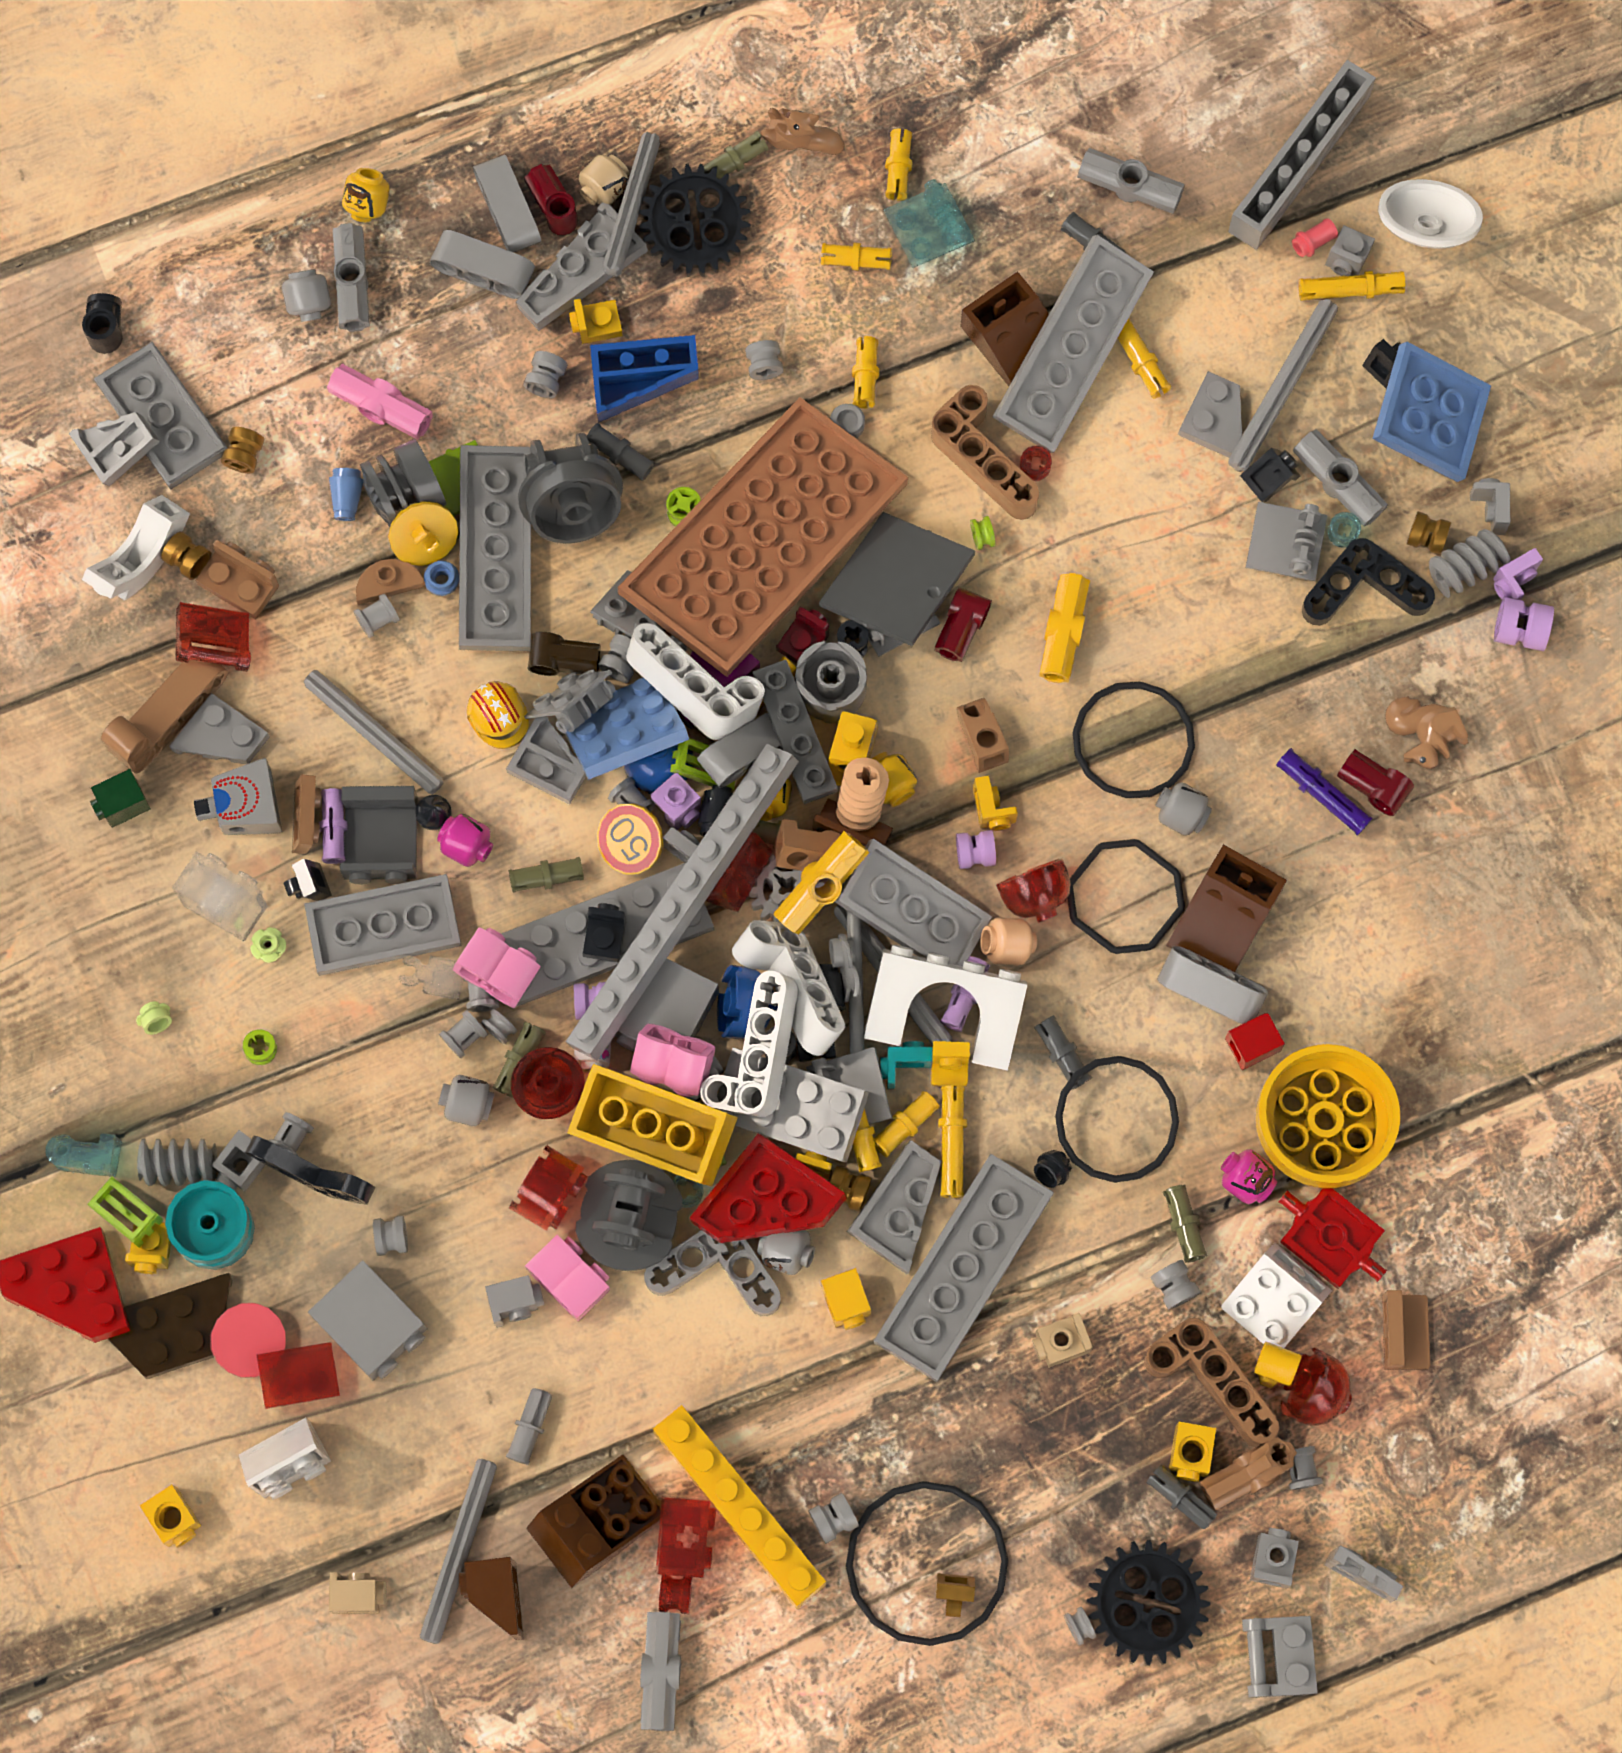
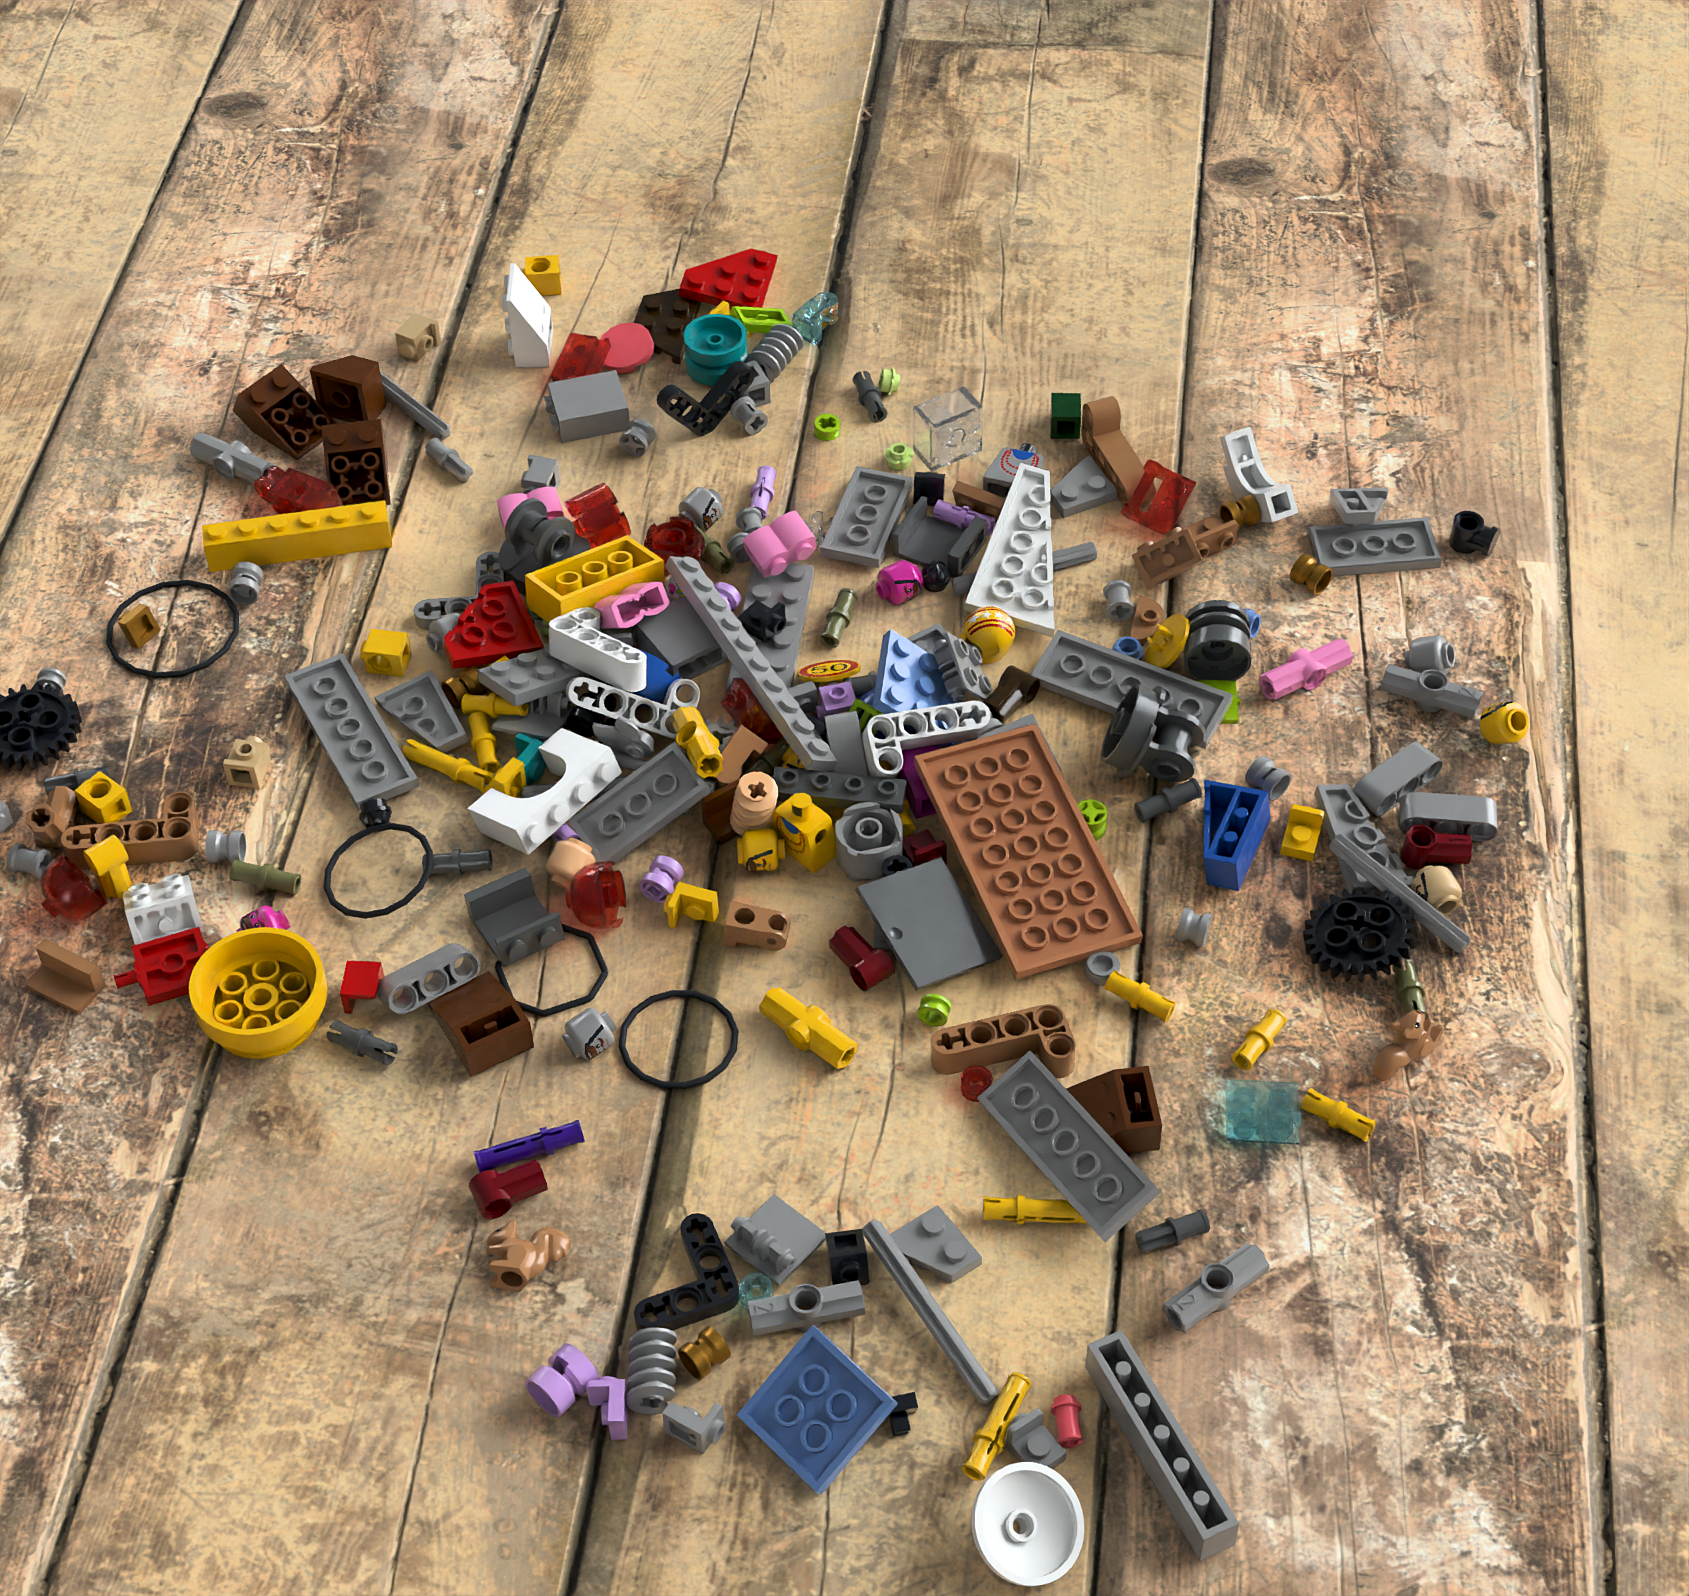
camera: 120 degrees right, 25 degrees down
(188, 1026) = (869, 396): none -> dark grey pin
(296, 591) = (1167, 557): none -> medium nougat bracket
(385, 727) = (1018, 558): none -> white wing
(404, 1054) = (762, 490): none -> lavender pin
(559, 1661) = (283, 413): none -> reddish brown slope
(1101, 950) = (513, 917): none -> dark grey panel
(1308, 1005) = (362, 1042): none -> dark grey pin

